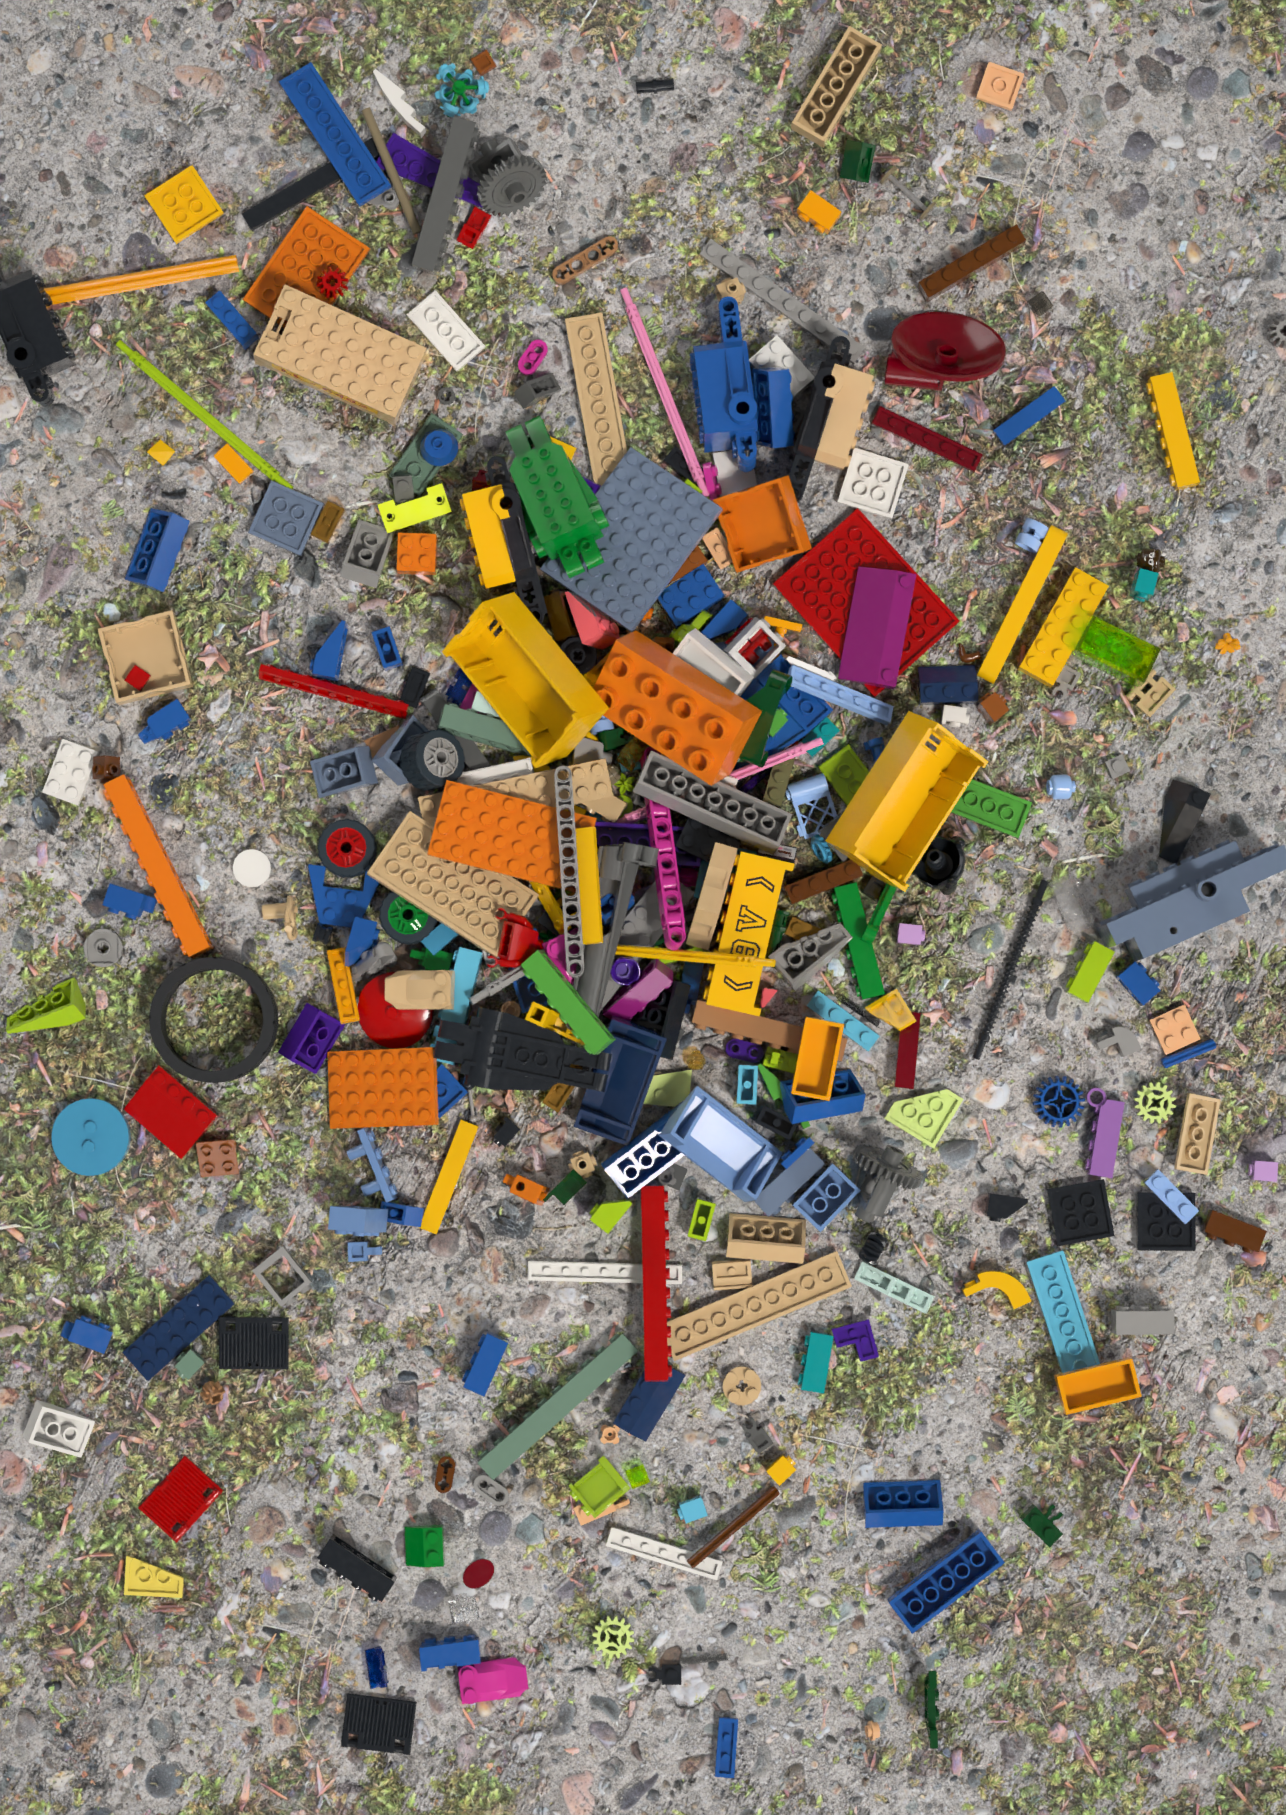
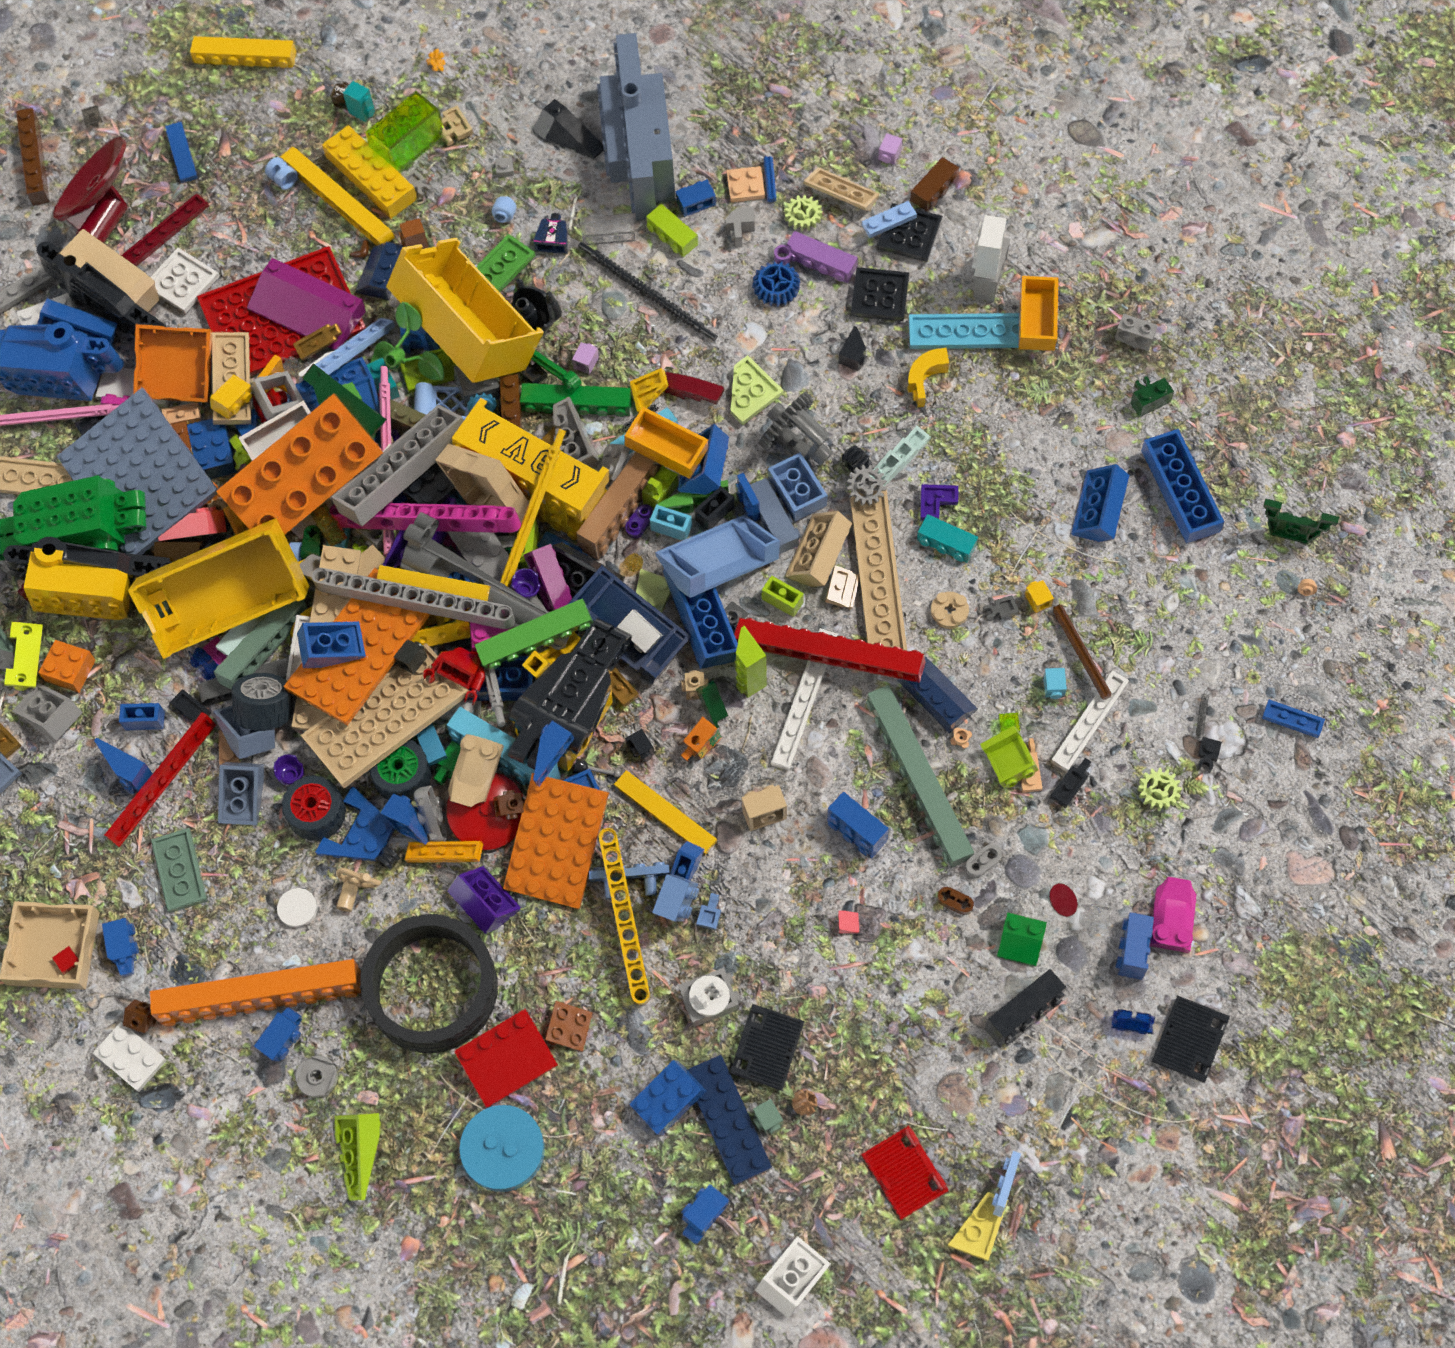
camera: 65 degrees left, 20 degrees down
(177, 1270) = (667, 1097): none -> blue brick
(193, 1592) = (1005, 1183): none -> light blue plate
(254, 744) = (179, 870): none -> sand green tile
(286, 1283) = (701, 1002): none -> white plate
(321, 1177) = (620, 906): none -> yellow beam
(378, 808) = (288, 769): none -> dark purple hair
(393, 1381) = (848, 922): none -> coral slope
(400, 1033) = (509, 804): none -> reddish brown brick
(453, 1061) = (552, 746): none -> blue slope
(476, 1270) = (764, 807): none -> tan brick
(498, 811) = (330, 643): none -> blue slope
(516, 888) = (410, 656): none -> pearl dark grey brick
(594, 1552) = (1071, 783): none -> black hinge
(616, 1096) = (642, 632): none -> white brick
(738, 601) = (231, 396): none -> yellow brick
(767, 587) = (231, 357): none -> tan plate
(792, 1005) = (614, 459): none -> light grey plate
(838, 657) = (317, 341): none -> pearl gold hinge
(847, 732) = (429, 364): none -> bright green plant
(848, 1274) = (865, 477): none -> light grey gear
(1045, 848) = (552, 235): none -> dark blue torso
(1114, 1490) = (1136, 332): none -> light grey brick
(1141, 1320) = (988, 247): none -> white brick

